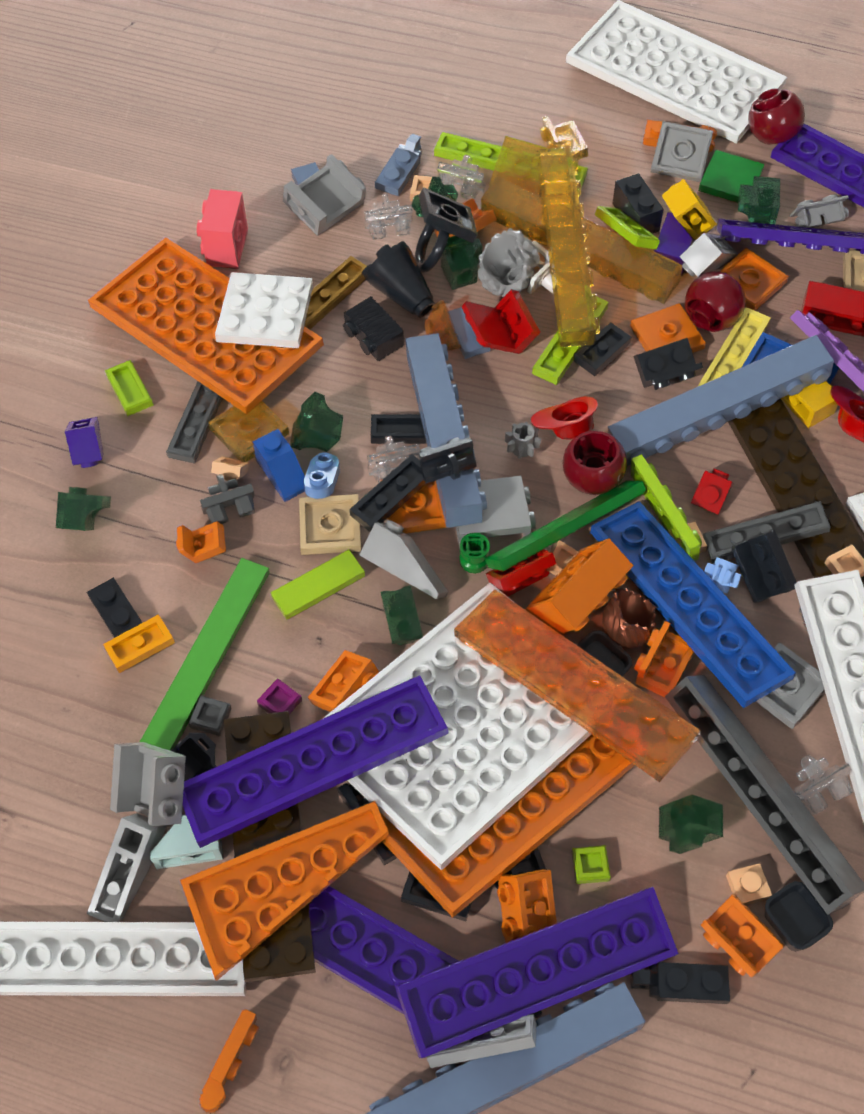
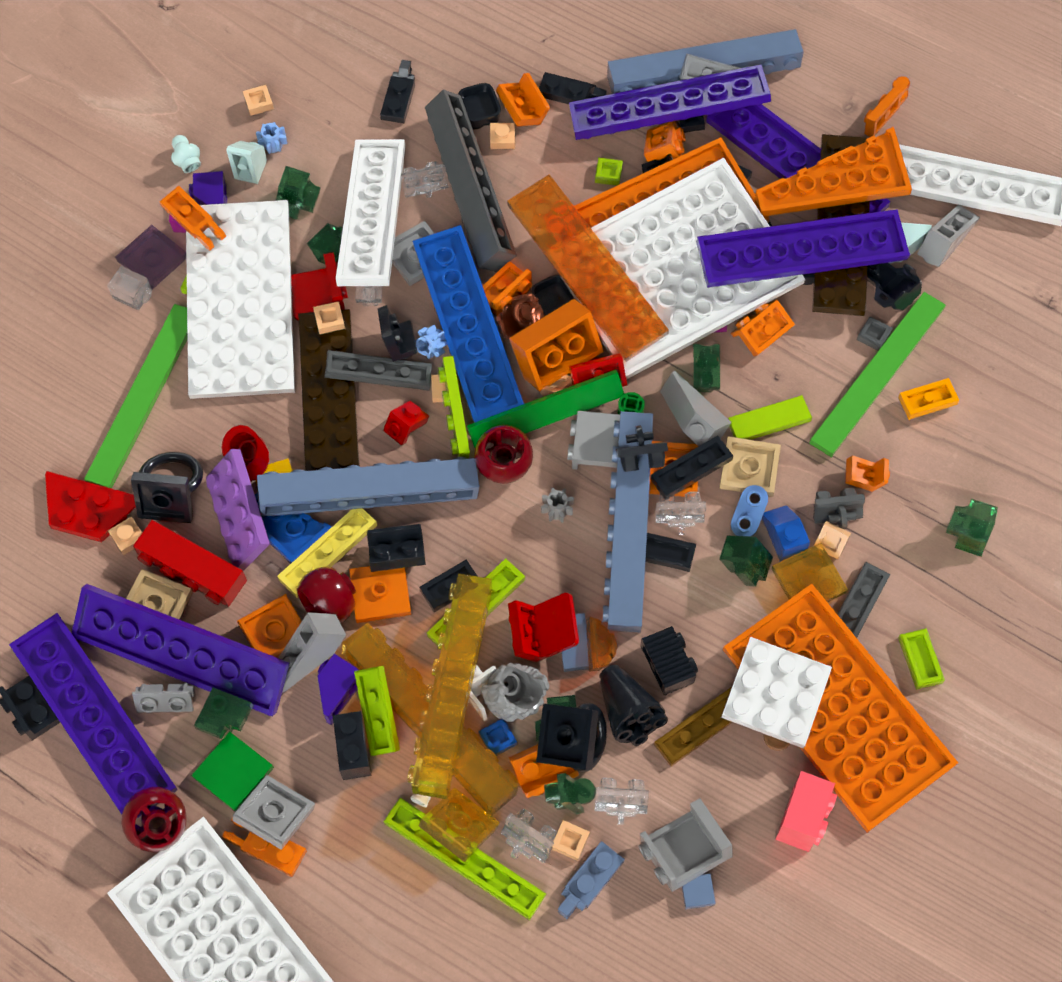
camera: 165 degrees left, 5 degrees up
(84, 442) = (968, 601): dark purple slope -> none
(114, 607) = (947, 437): black plate -> none
(148, 782) = (935, 284): light grey panel -> none
(279, 698) = (817, 333): magenta tile -> none
(564, 136) = (397, 858): clear yellow bracket -> none
(568, 418) = (513, 511): red piece -> none
(689, 209) = (305, 711): yellow brick -> none
(690, 823) = (528, 167): clear green brick -> none

